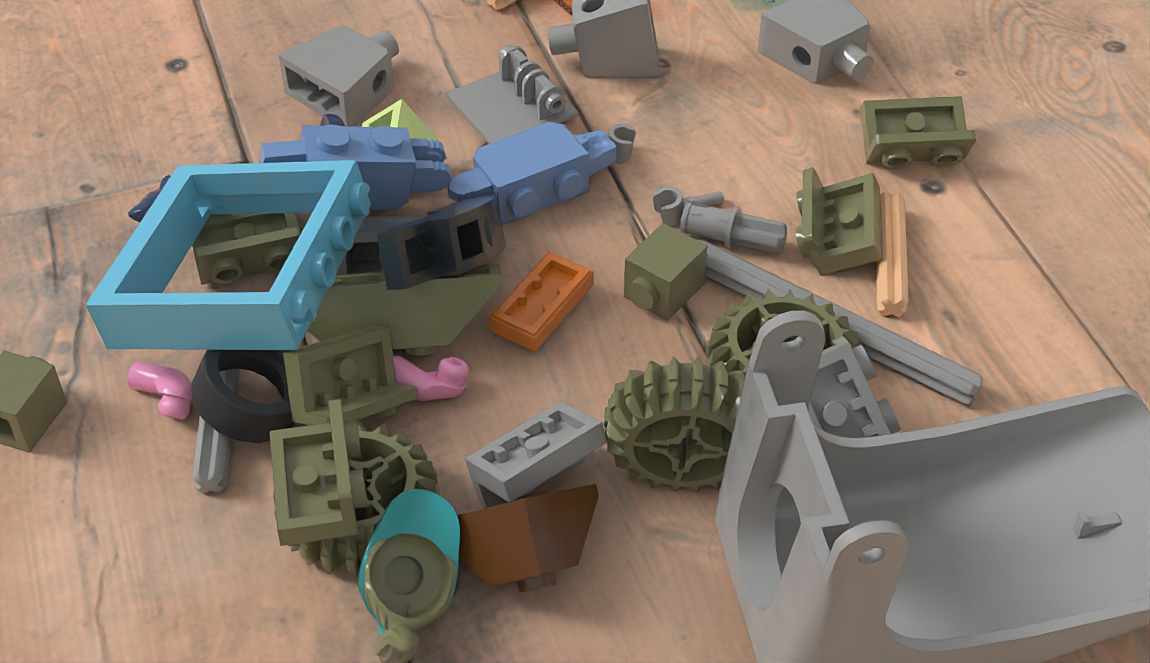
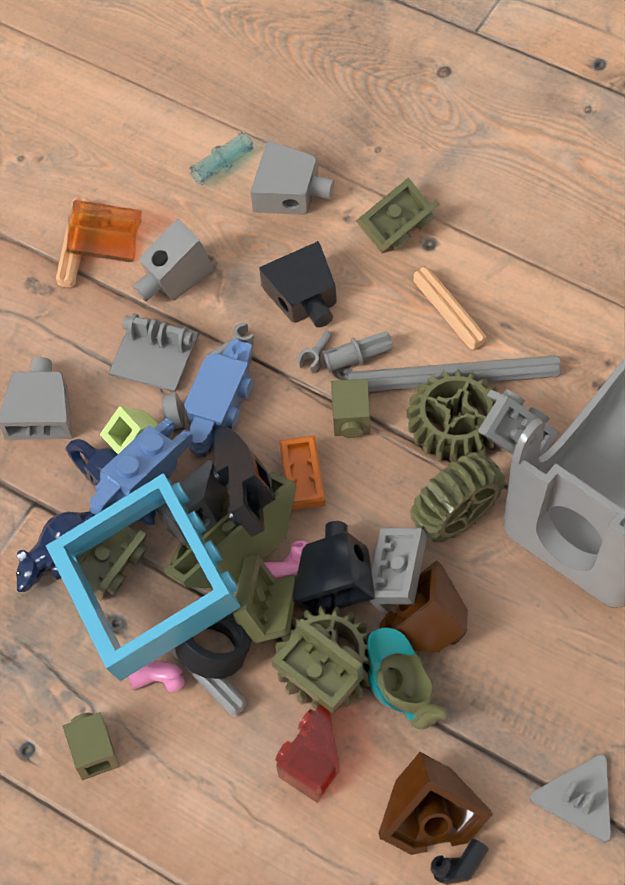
camera: 35 degrees left, 15 degrees up
(224, 588) = (312, 757): none -> clear red slope
(460, 408) = (333, 571): none -> black torso
(462, 153) = (173, 409): none -> light grey tile
(737, 130) = (301, 285): none -> black torso
(839, 222) = (411, 307): olive bracket -> none

